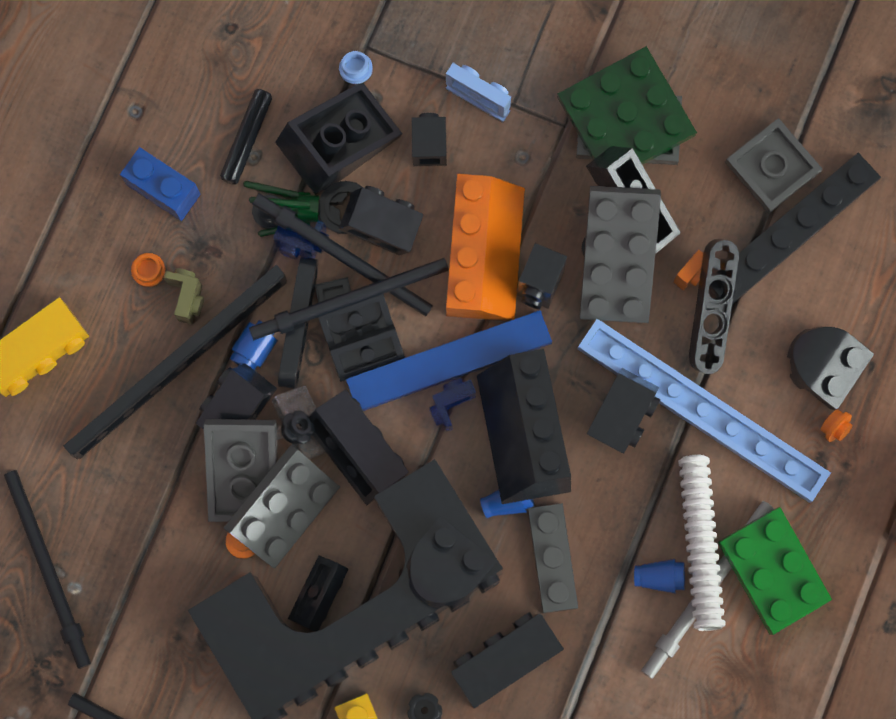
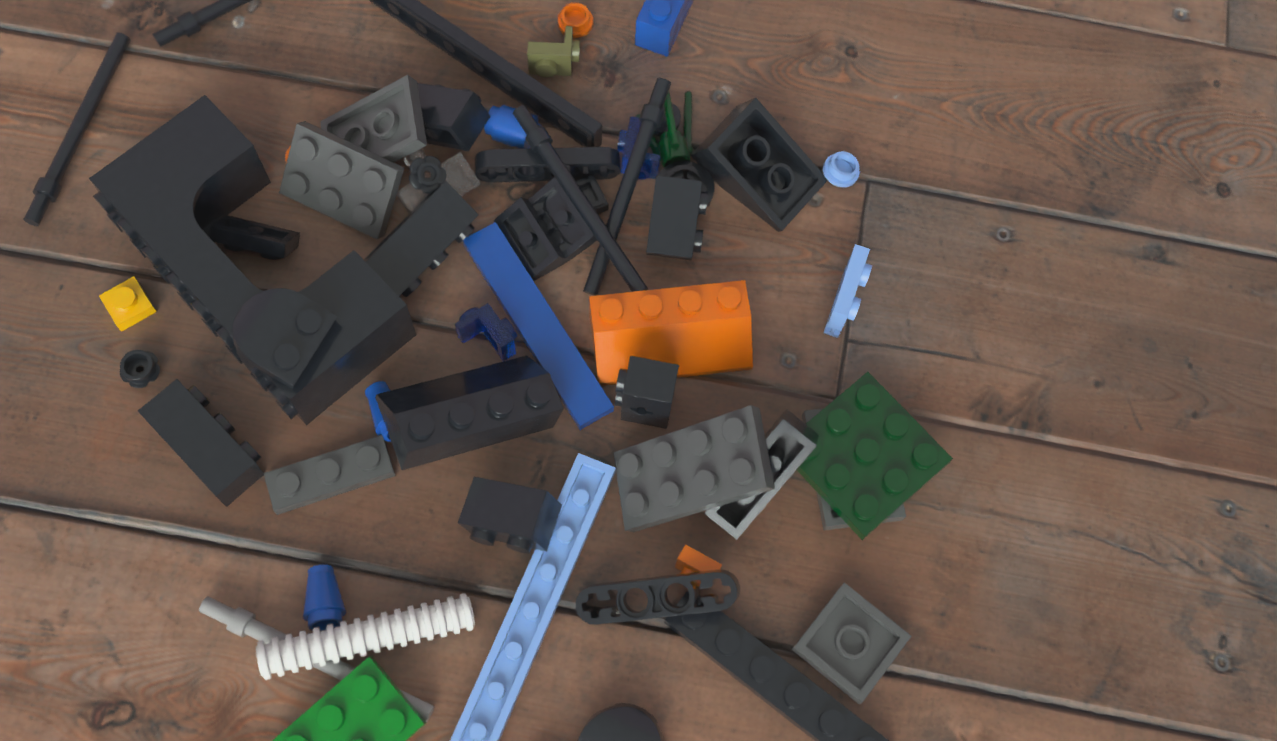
camera: 70 degrees right, 10 degrees down
(246, 136) = (738, 82): black axle -> none
(429, 140) = (779, 254): black brick -> none

